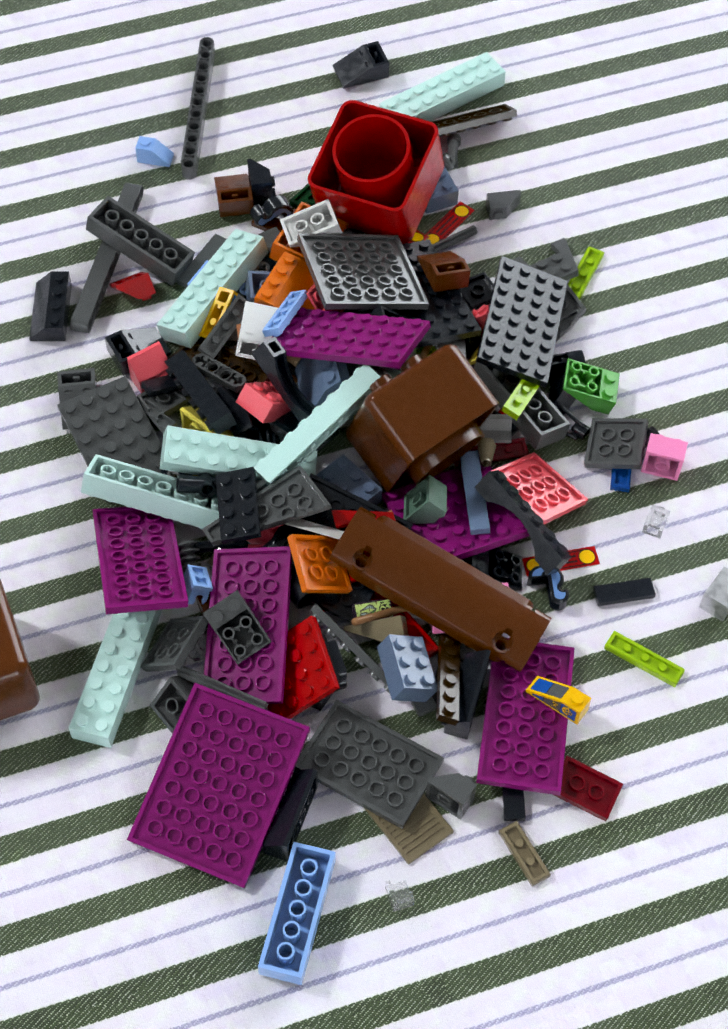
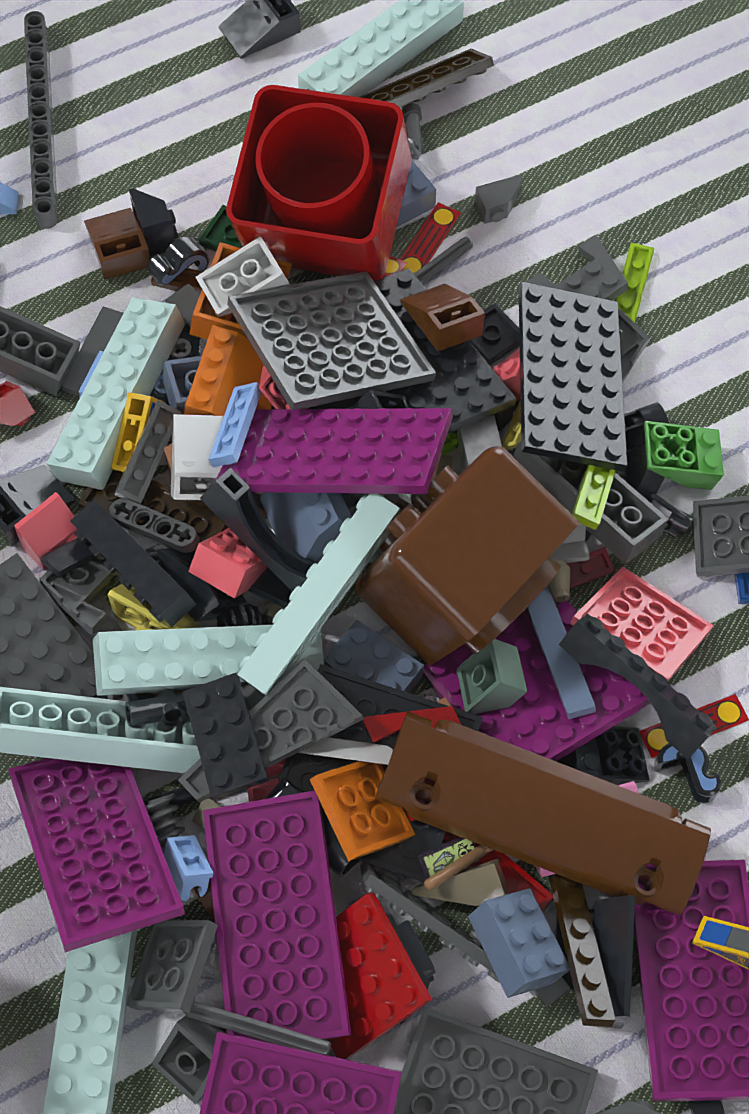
camera: 10 degrees left, 5 degrees up
(237, 626) = (261, 929): dark grey slope -> none

